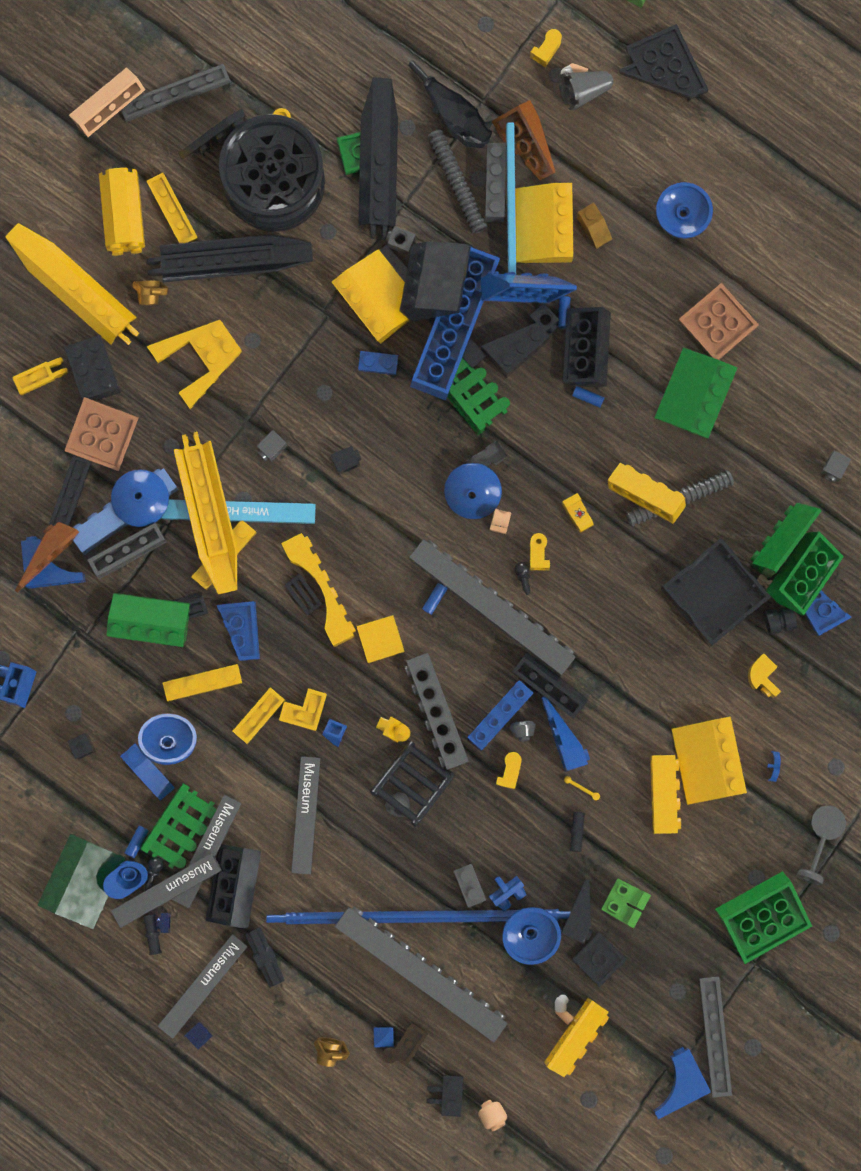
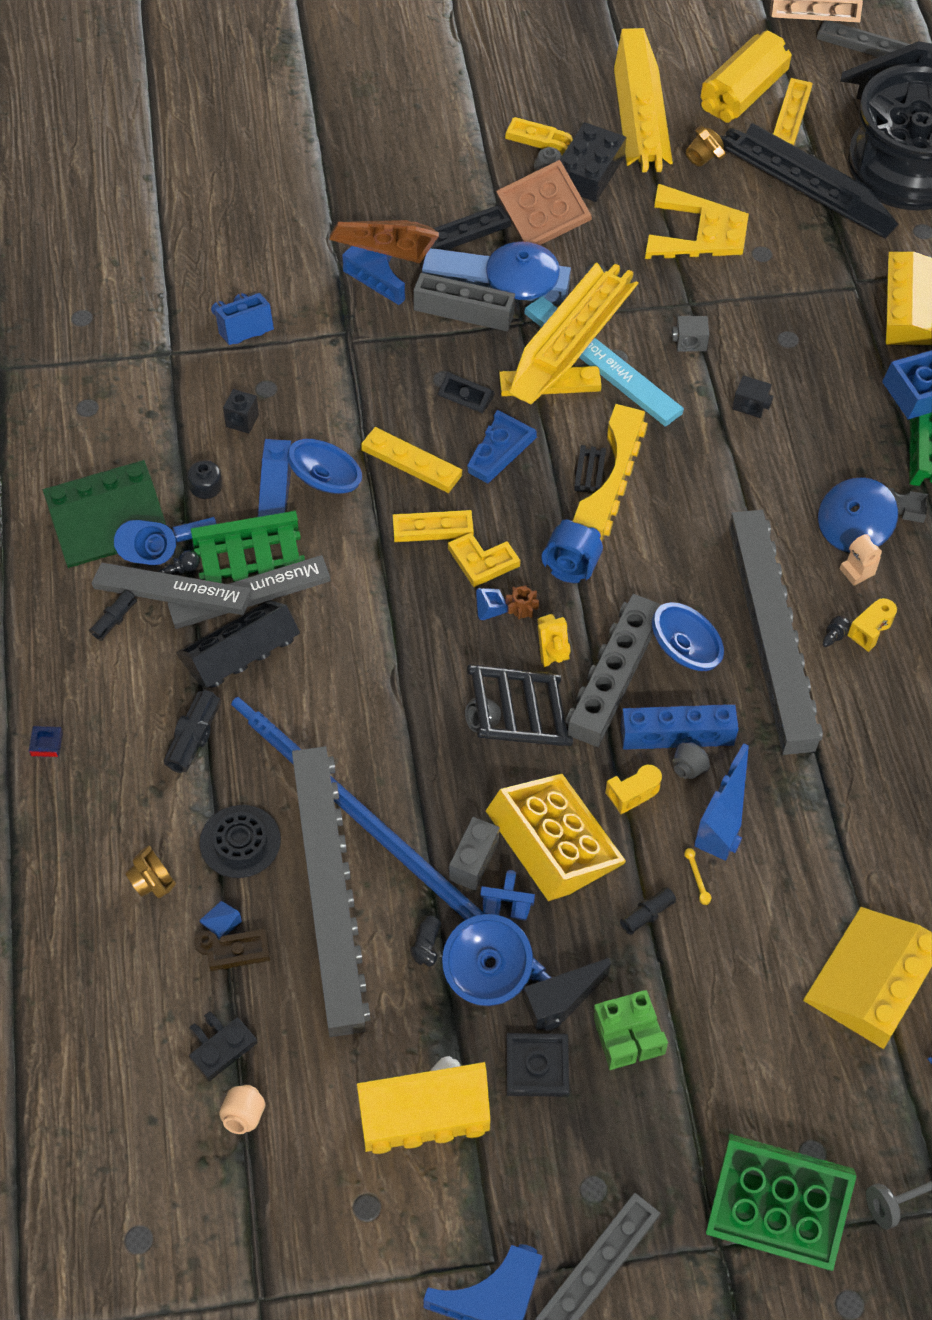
camera: 45 degrees right, 25 degrees down
(68, 396) = (546, 157): none -> dark grey cone
(116, 814) = (204, 479): none -> black head
(148, 620) = (421, 365): green slope -> none
(163, 923) = (137, 615): clear blue plate -> none
(202, 986) = (103, 704): dark grey tile -> none
(306, 815) = (379, 648): dark grey tile -> none
(348, 713) = (522, 602): none -> dark orange gear
(349, 988) = (238, 830): none -> black wheel
(350, 663) = (572, 551): none -> blue brick
(378, 363) = (867, 353): blue plate -> none
(380, 639) = (626, 565): yellow tile -> none
(434, 598) = (719, 575): blue hinge -> none
(457, 651) = (687, 637): none -> blue dish
(491, 952) = (425, 939): none -> black arm
(497, 835) = (554, 835): none -> yellow slope
(550, 685) = (764, 743): black brick -> none
(664, 794) = (786, 960): yellow brick -> none

